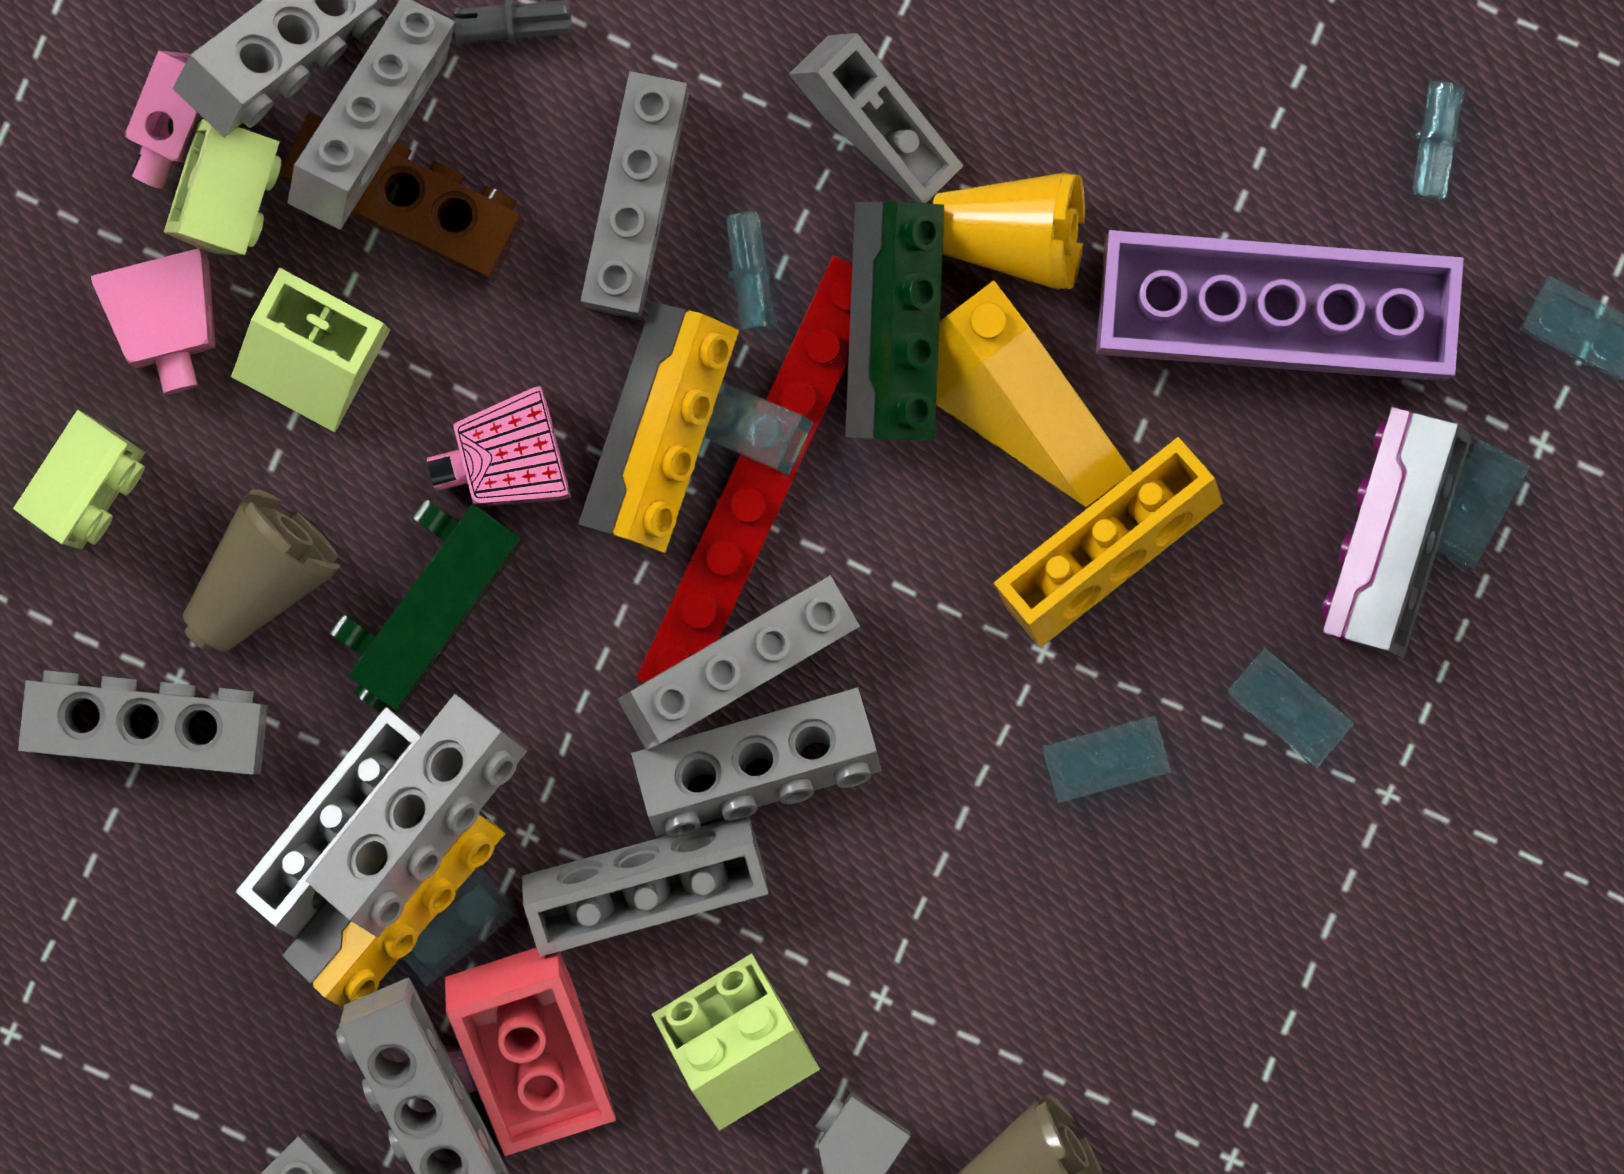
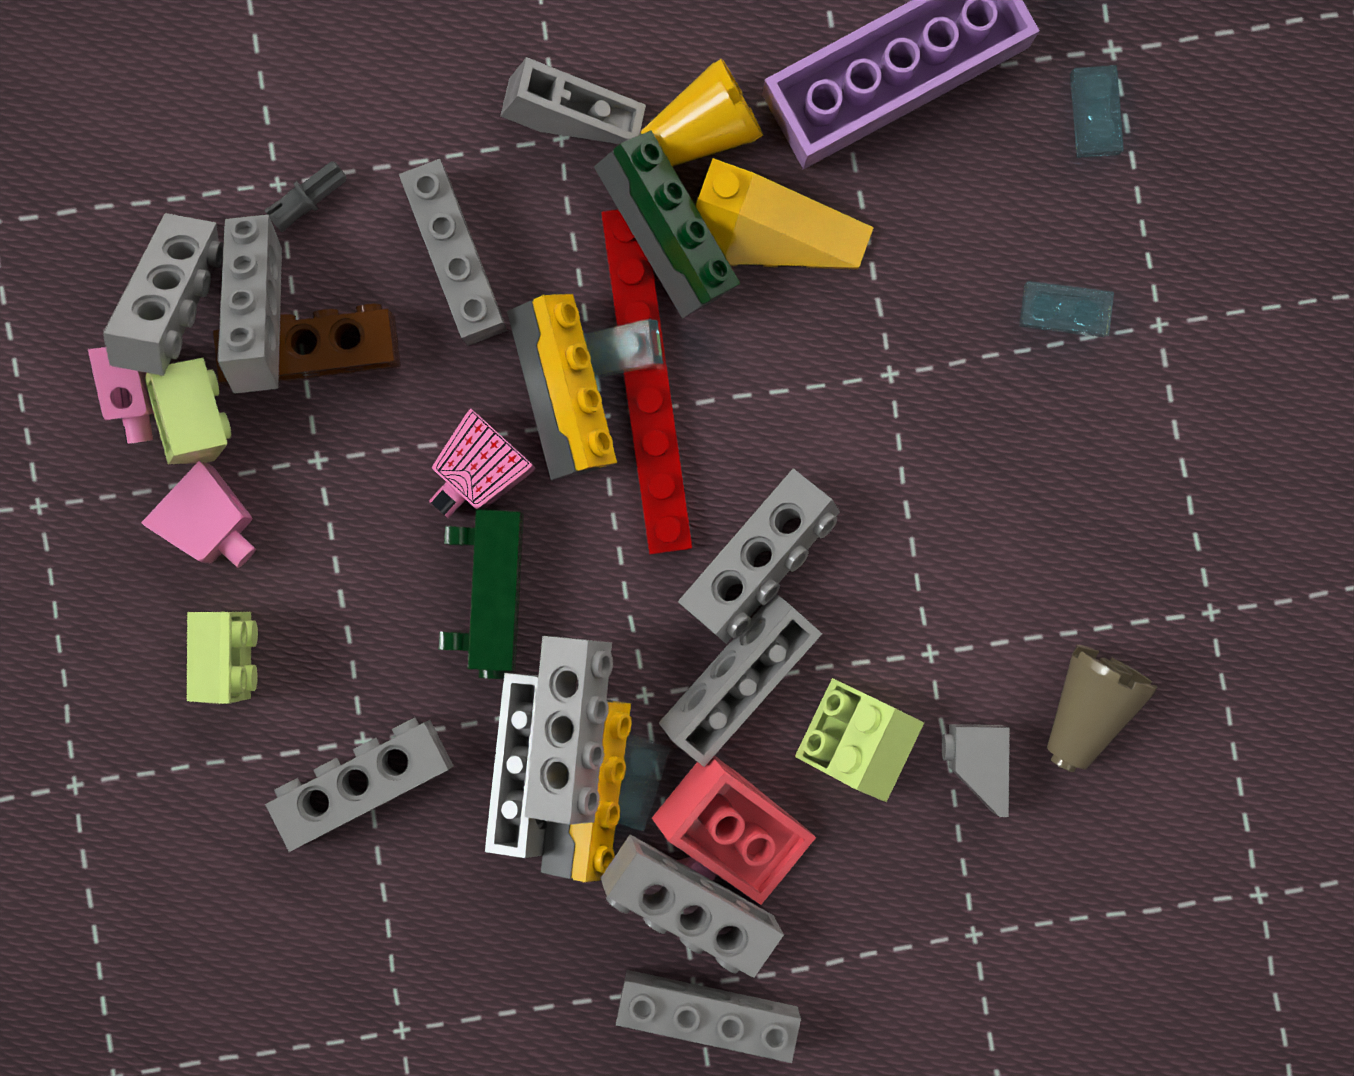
camera: 40 degrees left, 0 degrees up
(256, 573) = (368, 642): dark tan cone -> none
(308, 349) = (310, 480): yellowish green slope -> none
(738, 663) = (708, 501): light grey brick -> none
(750, 270) = (556, 255): clear light blue axle -> none
(1106, 759) = (974, 414): clear light blue plate -> none
(1109, 542) = (889, 276): yellow brick -> none
(1396, 532) = (1062, 156): piece -> none

